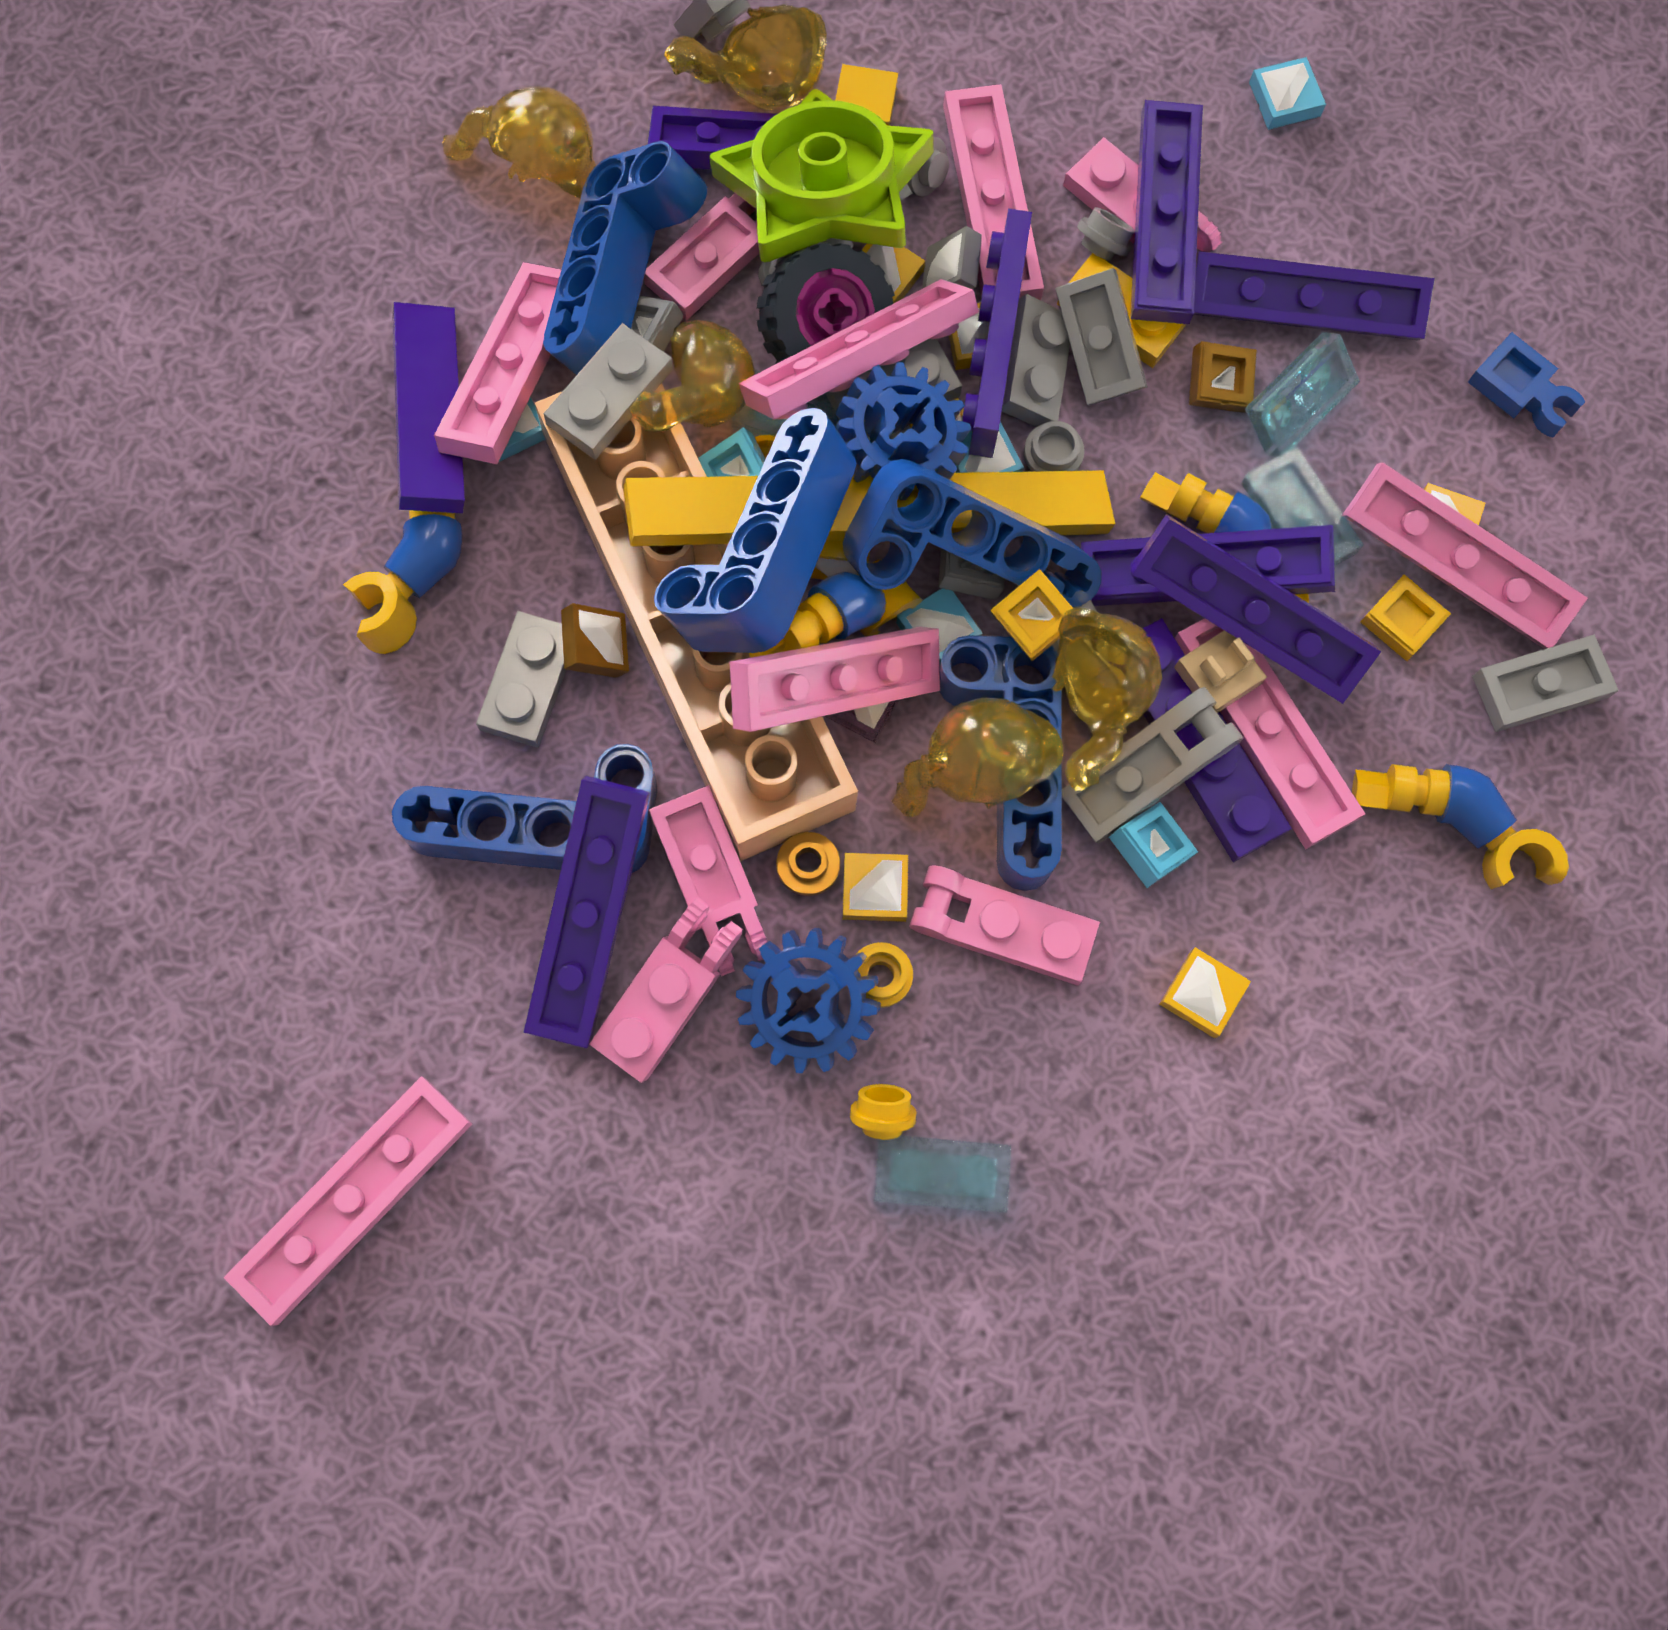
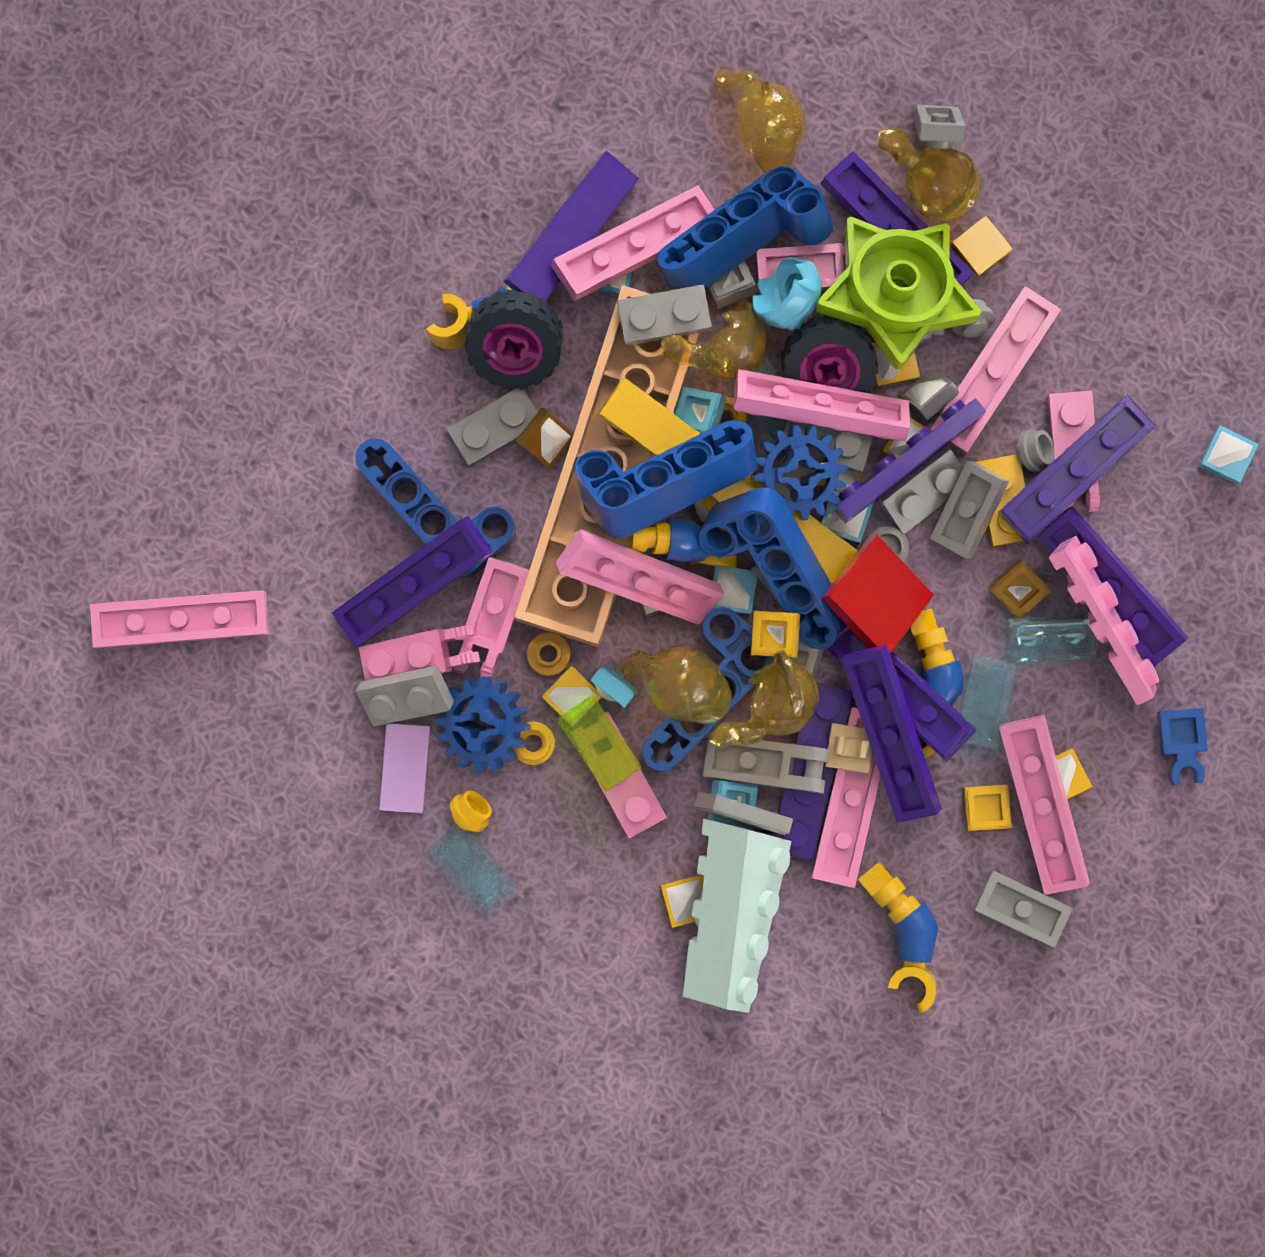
camera: 50 degrees right, 10 degrees up
(466, 560) = (516, 320): none -> black wheel
(692, 1047) = (404, 696): none -> light grey plate
(719, 270) = (789, 294): none -> medium azure hair
(764, 1132) = (405, 768): none -> lavender tile
(912, 833) = (613, 686): none -> medium azure tile
(956, 903) = (599, 743): none -> clear neon green tile
(1097, 490) = (877, 595): none -> red tile
(1181, 835) = (743, 813): none -> light grey tile
(1279, 955) = (733, 914): none -> light aqua wedge
(1324, 309) = (1103, 618): none -> bright pink wing

